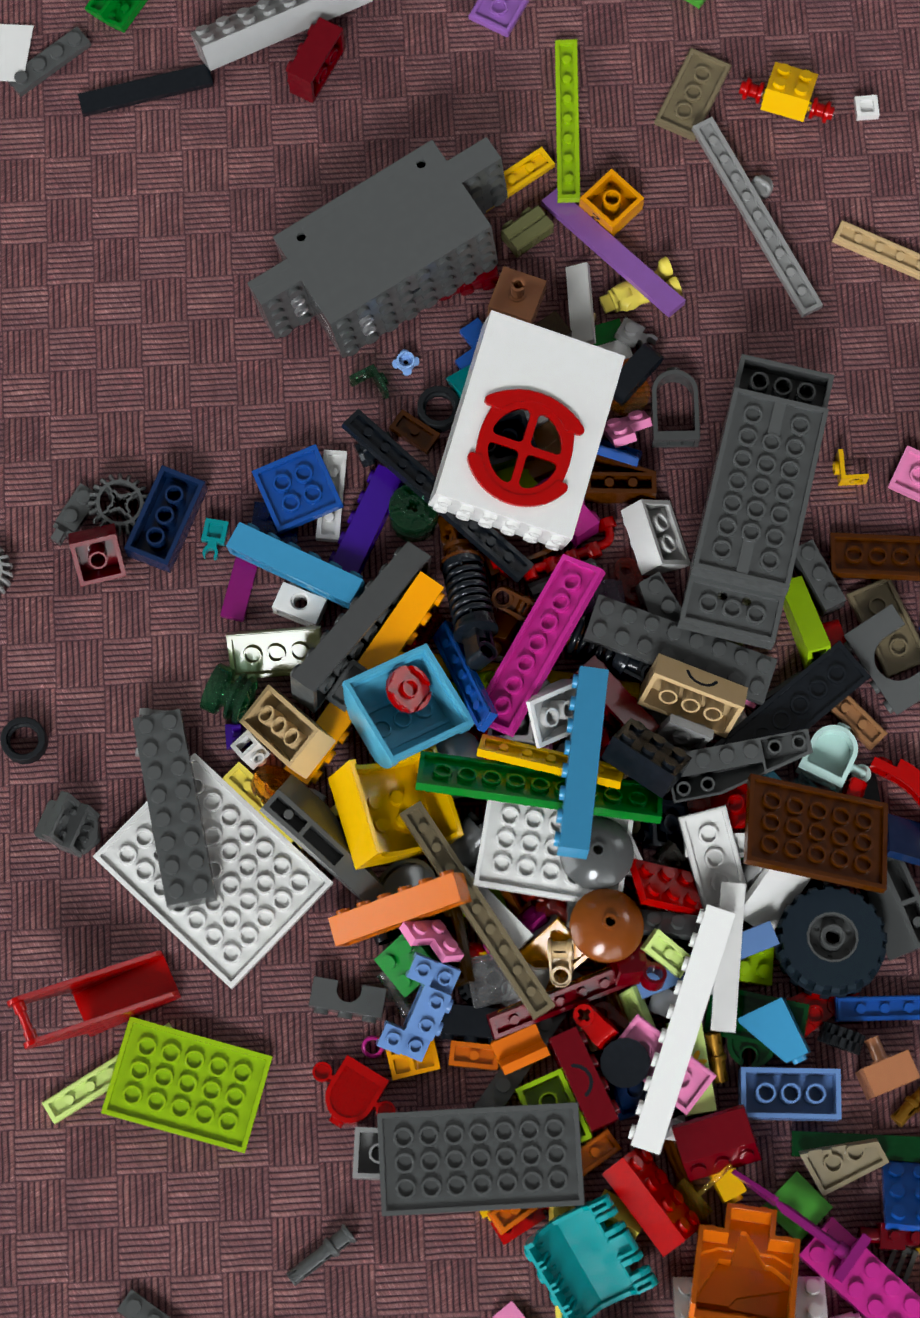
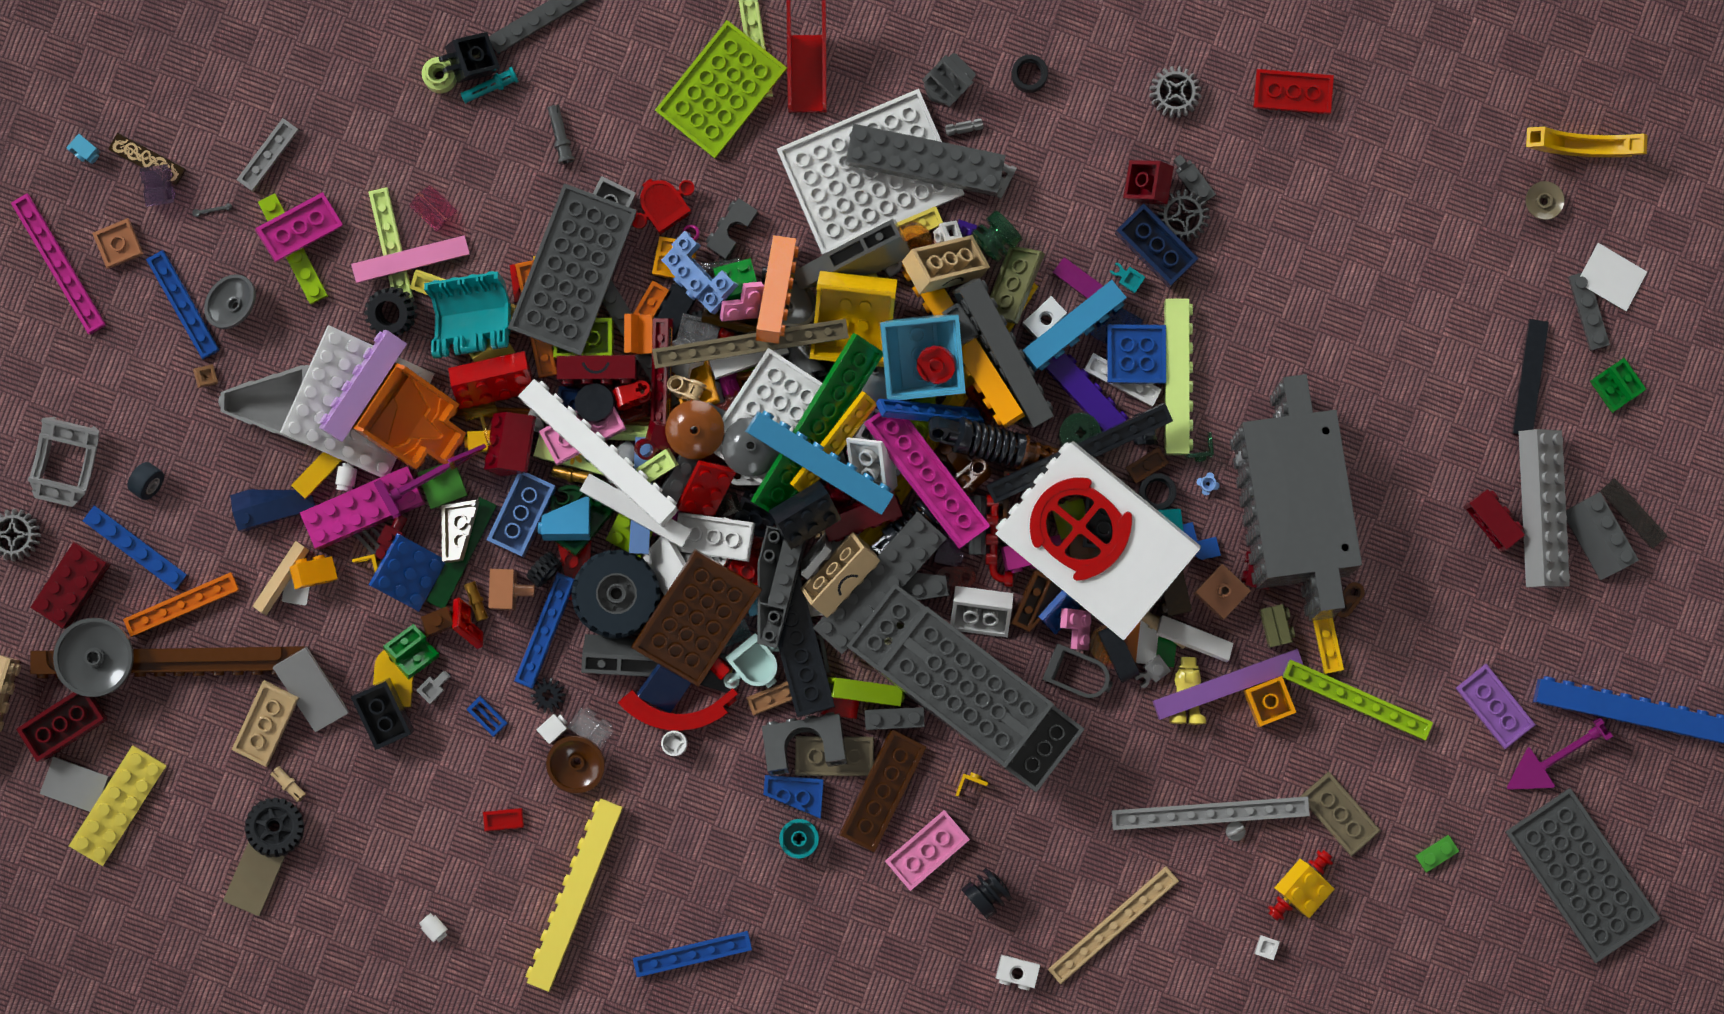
camera: 115 degrees right, 10 degrees up
(116, 787) = (963, 127): none -> light grey axle
(323, 430) = (1177, 385): none -> yellowish green brick

